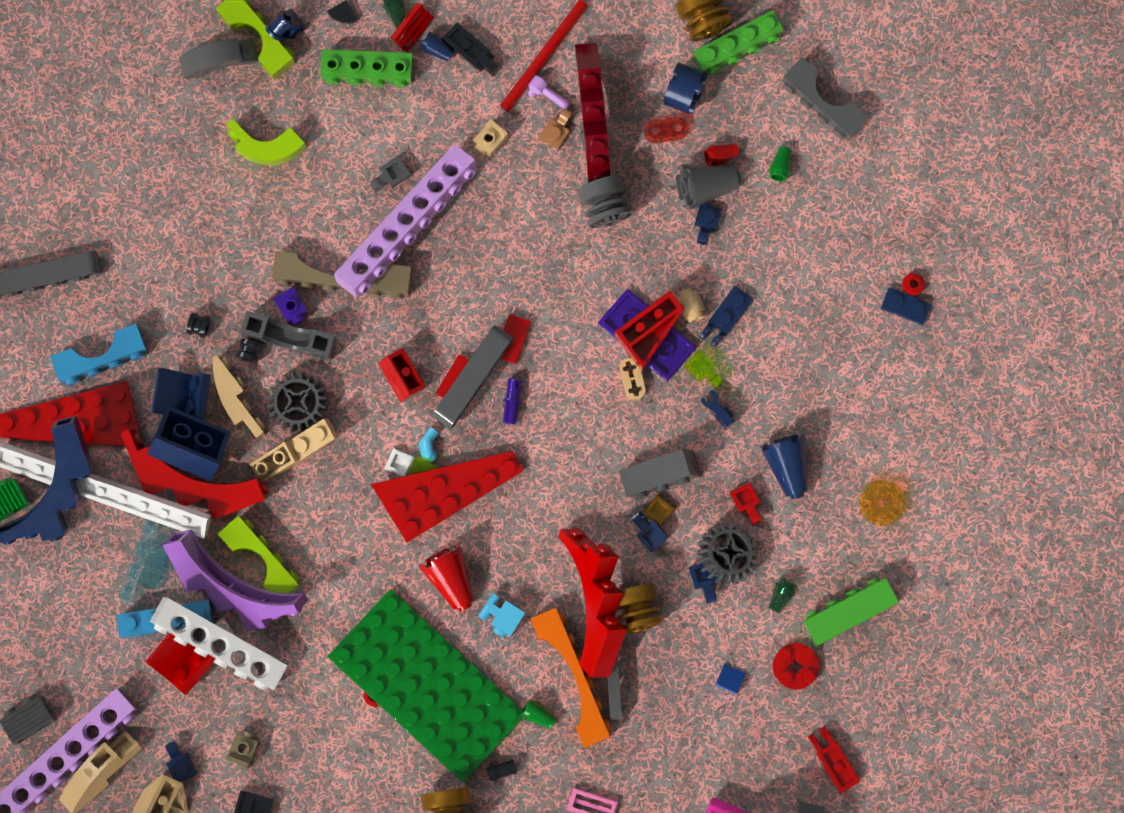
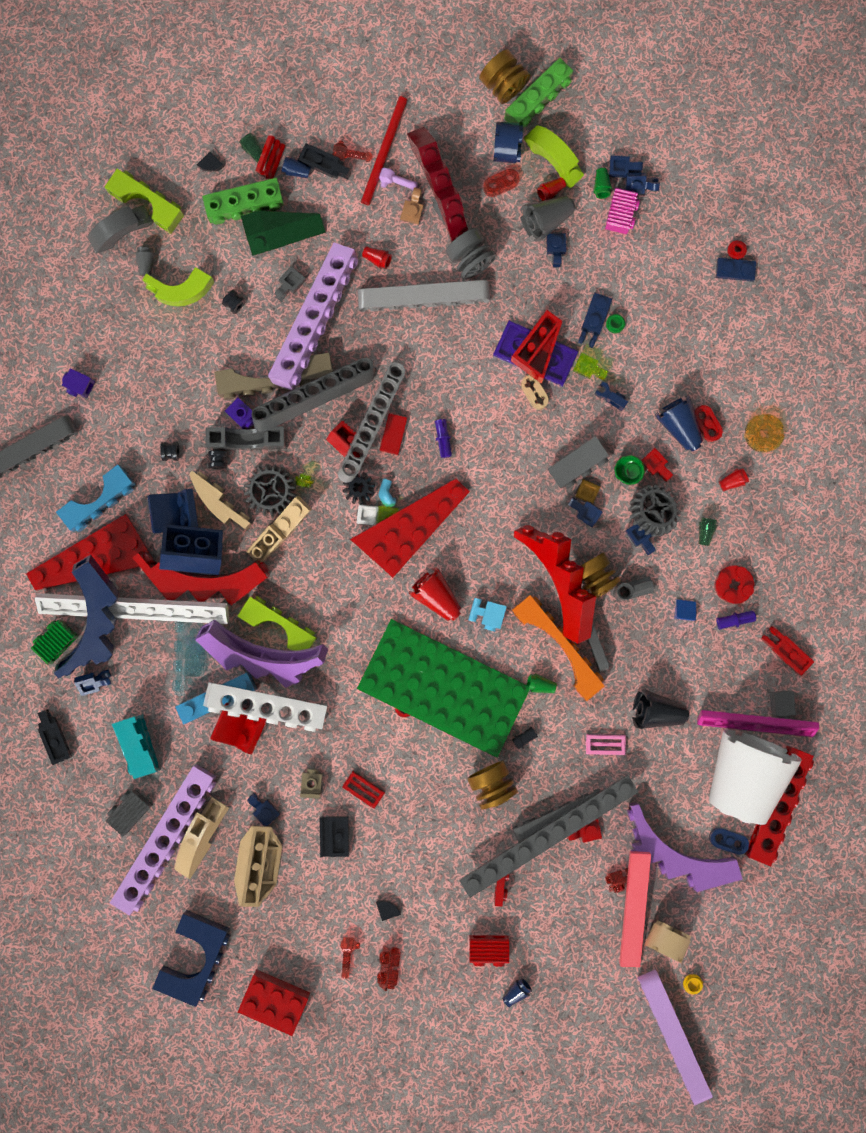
camera: 20 degrees left, 5 degrees up
(28, 561) = (90, 683): none -> dark blue plate
(59, 647) = (136, 746): none -> teal wedge
(117, 218) = (77, 383): none -> dark purple brick
(235, 102) = (144, 260): none -> dark grey cone
(285, 25) = (166, 185): dark blue piece -> none
(288, 759) = (359, 796): none -> red tile
(321, 177) = (233, 301): none -> black wheel
(339, 402) = (304, 480): none -> clear neon green plate
(369, 306) = (268, 414): none -> dark grey beam
(392, 110) = (277, 229): none -> dark green wedge
(402, 422) = (357, 495): none -> black gear
(431, 368) = (367, 429): none -> light grey beam
(472, 377) = (406, 427): dark grey beam -> none
(489, 148) = (361, 238): tan brick -> none
(495, 43) = (340, 150): none -> clear red piece
(501, 175) = (378, 257): none -> red cone
(518, 329) = (428, 388): red tile -> none
(535, 231) = (423, 295): none -> light grey beam
(663, 784) = (657, 711): none -> black cone
(679, 636) = (634, 588): none -> dark grey piece
(692, 305) = (568, 318): tan brick -> none
(721, 501) = (635, 469): none -> green hair
(737, 117) = (551, 147): none -> lime arch
(748, 328) = (615, 323): none -> green plate
(785, 707) = (736, 619): none -> dark purple axle
(793, 202) = (621, 211): none -> dark pink brick
(808, 151) = (621, 165): none -> dark blue plate
(820, 472) = (709, 422): none -> red plate
(822, 176) = (638, 183): none -> dark blue plate
(830, 546) = (734, 479): none -> red cone
(844, 119) = (641, 132): dark grey arch -> none
(849, 612) = (766, 528): bright green brick -> none

